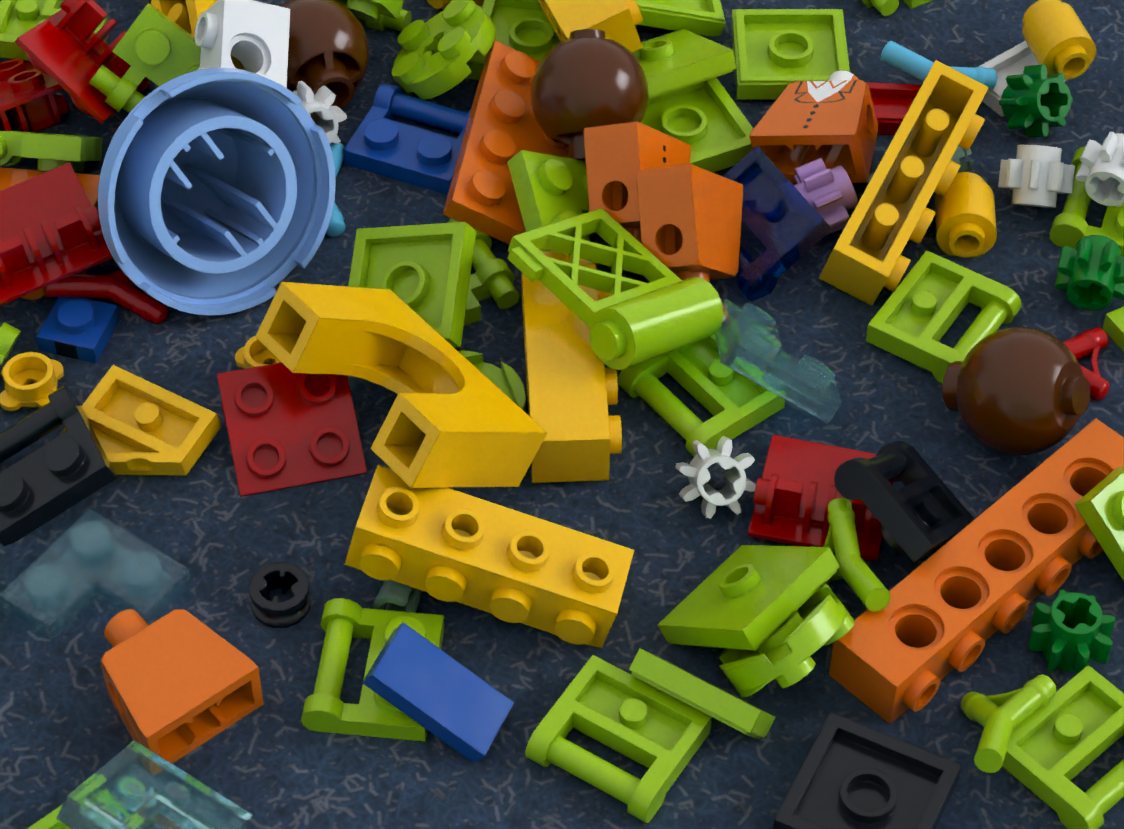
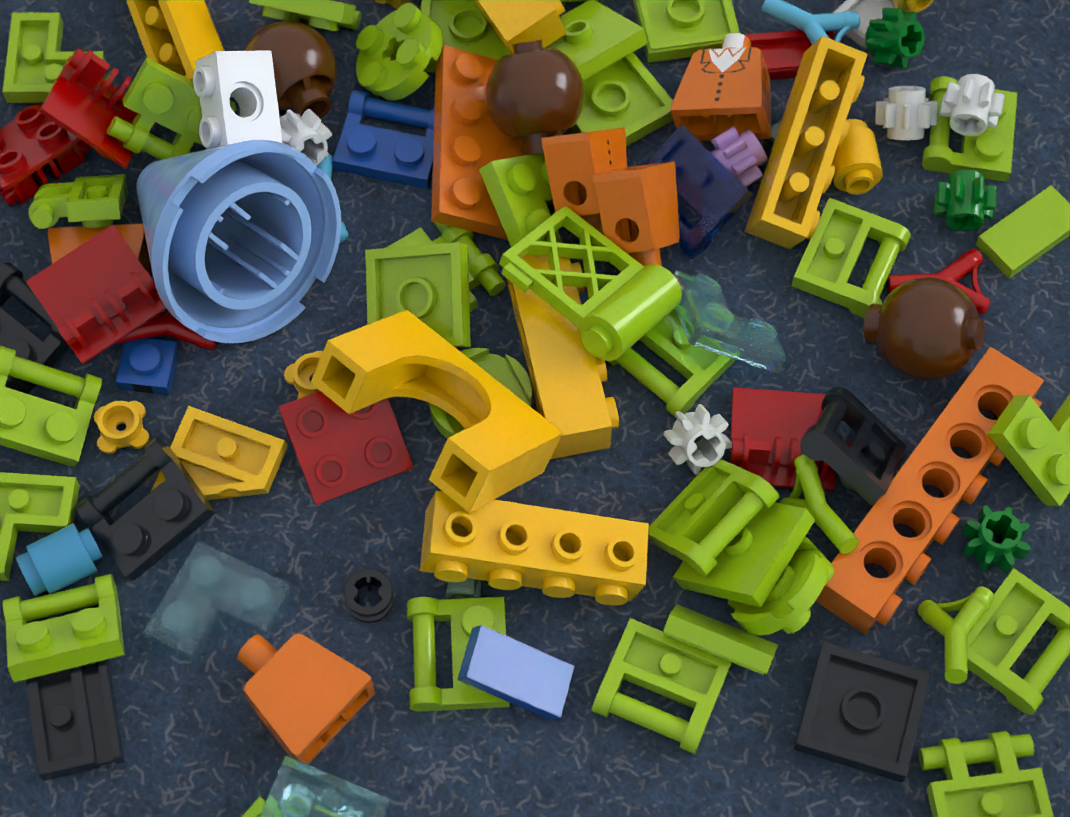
camera: 10 degrees left, 15 degrees up
(715, 552) = (713, 495): none -> lime plate

